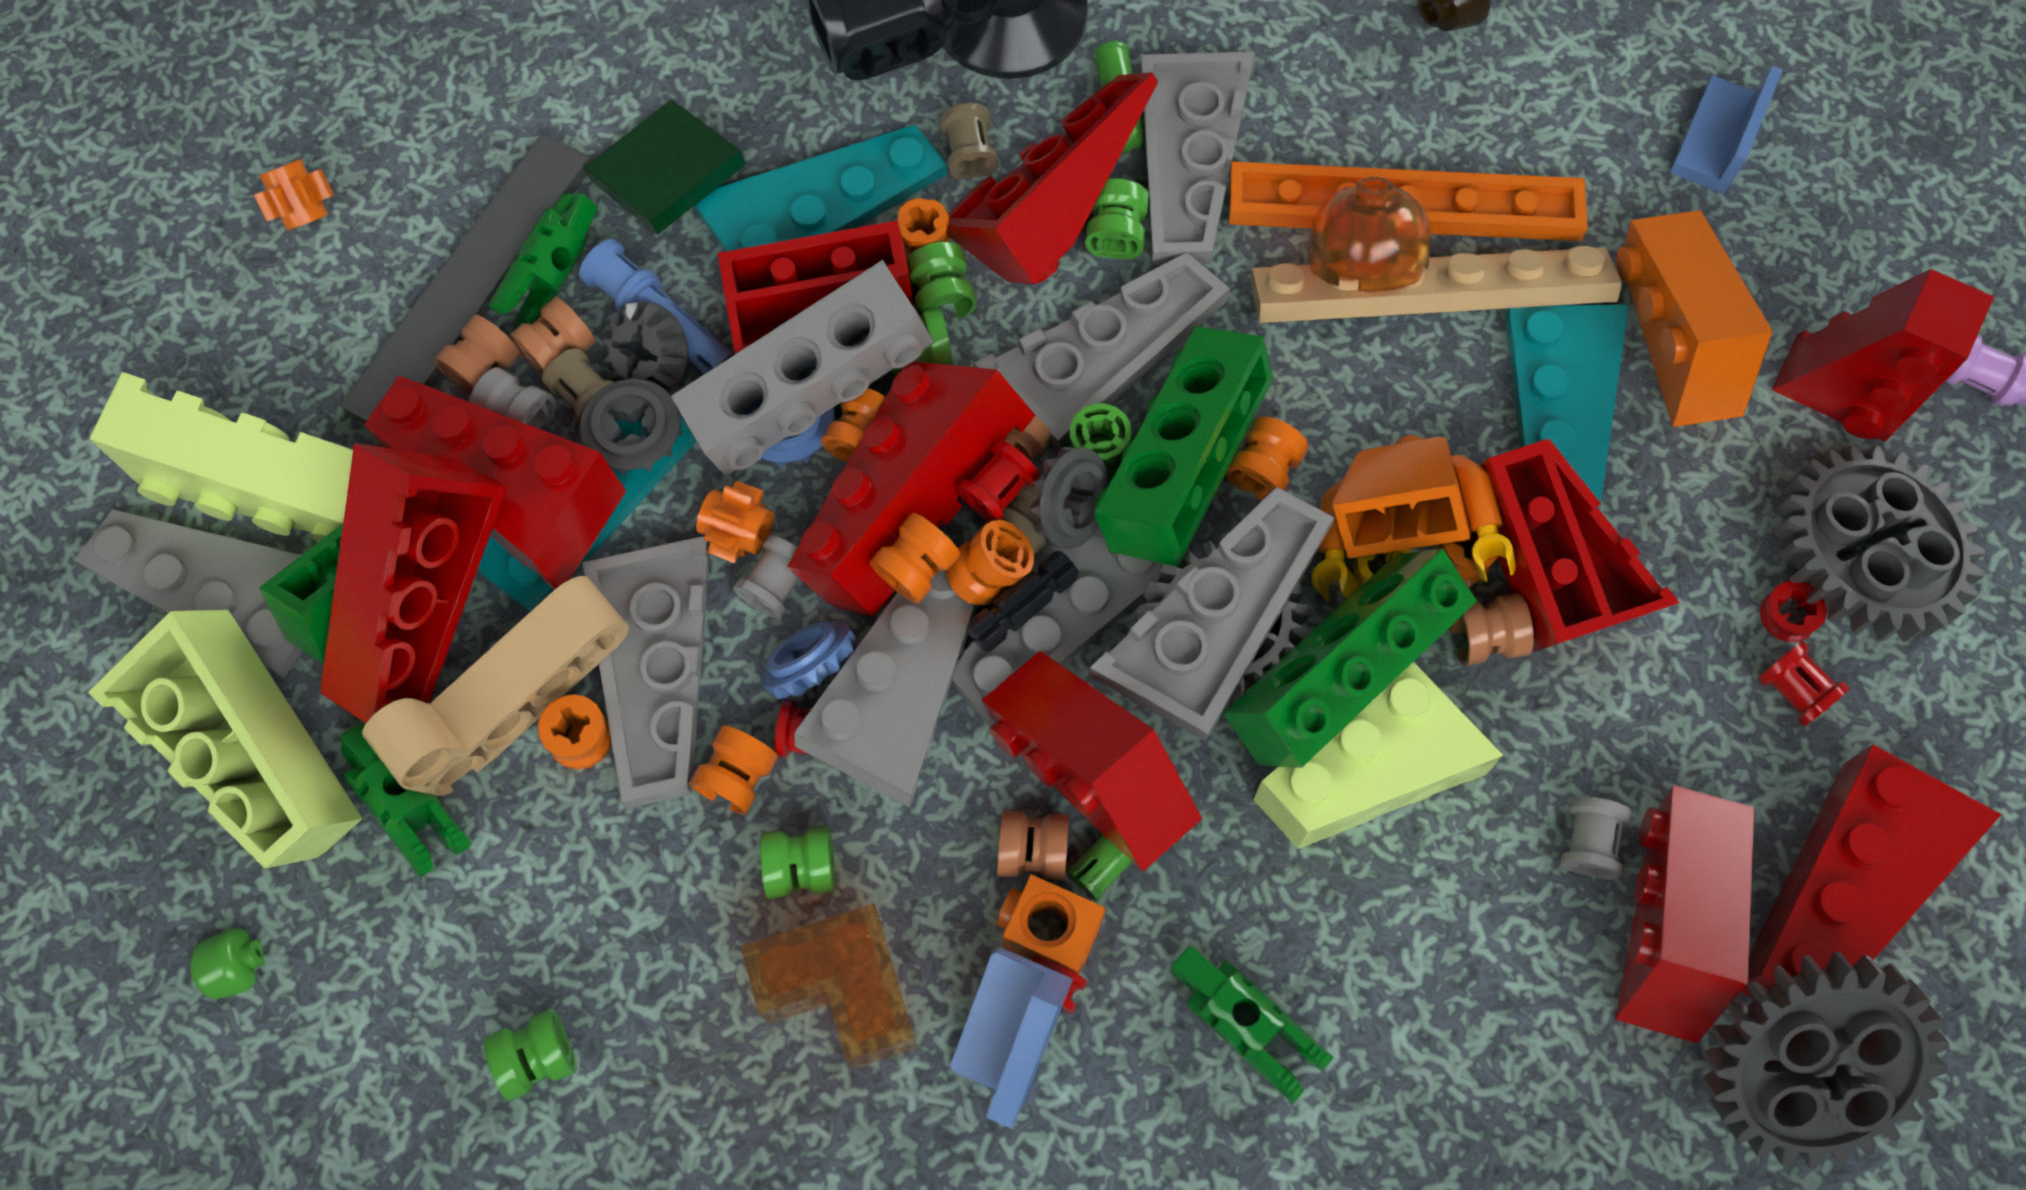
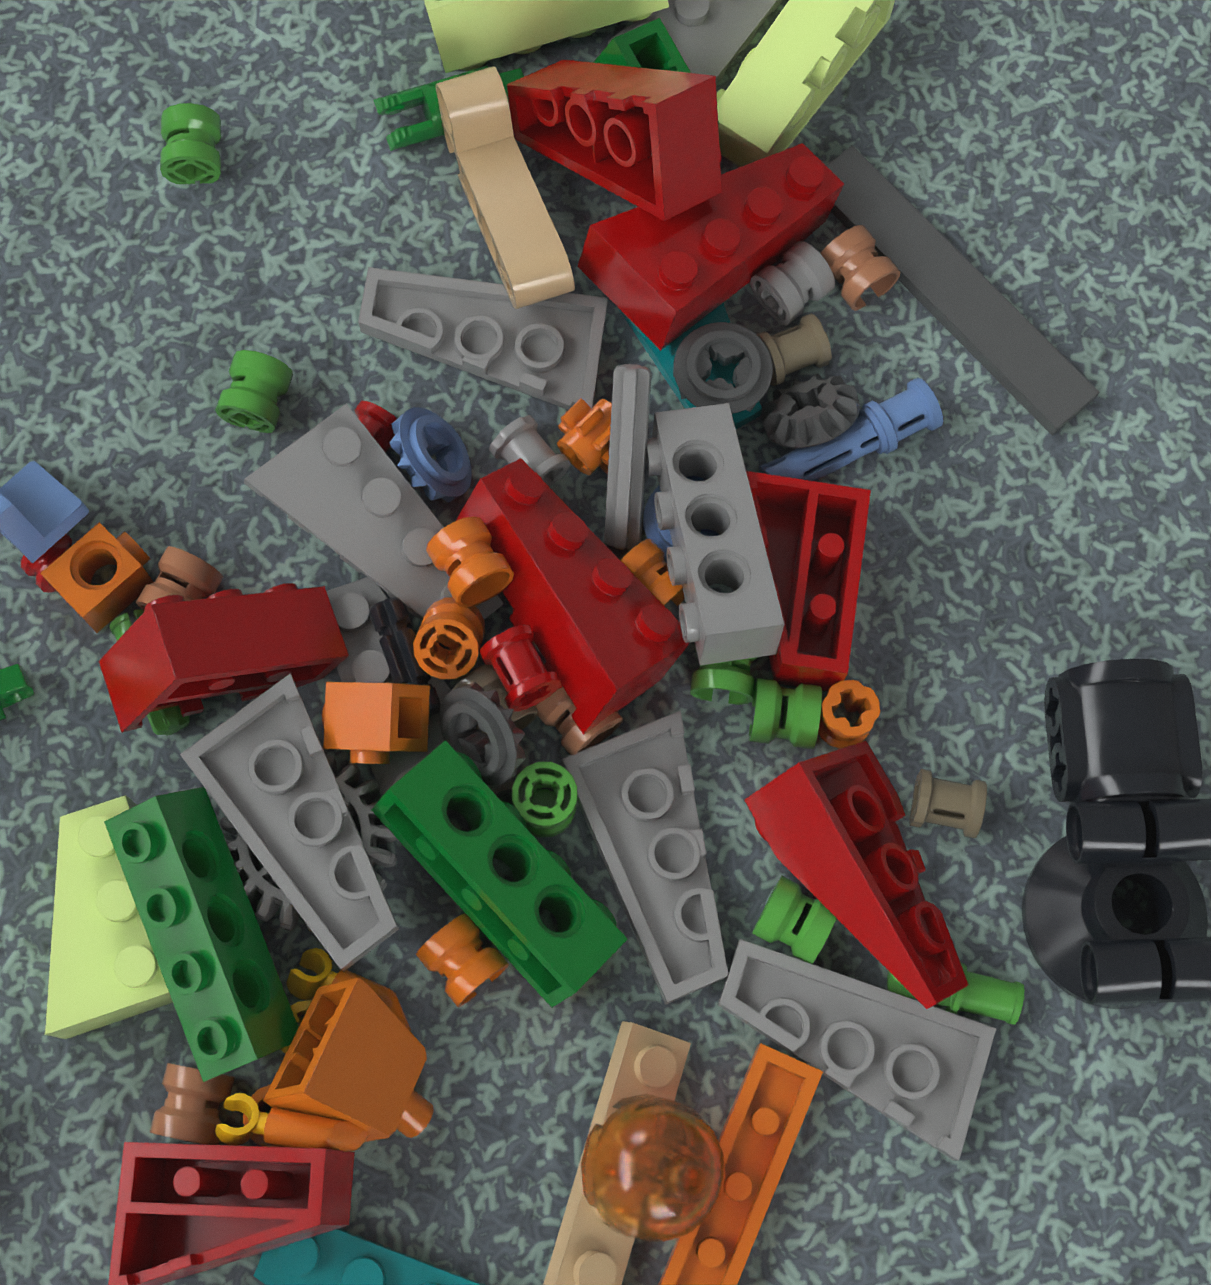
camera: 105 degrees right, 5 degrees up
(293, 194) = (1094, 154): orange gear -> none
(545, 258) = (946, 355): green hinge -> none
(551, 335) = (855, 335): nougat wheel -> none
(584, 744) = (454, 263): orange wheel -> none
(665, 166) = (1019, 494): dark green tile -> none
(734, 768) = (358, 364): orange wheel -> none
(750, 471) = (627, 455): none -> light grey axle
(822, 192) = (932, 623): teal wing -> none
(837, 965) = (137, 399): clear orange brick -> none
(1096, 589) = (375, 719): none -> orange brick

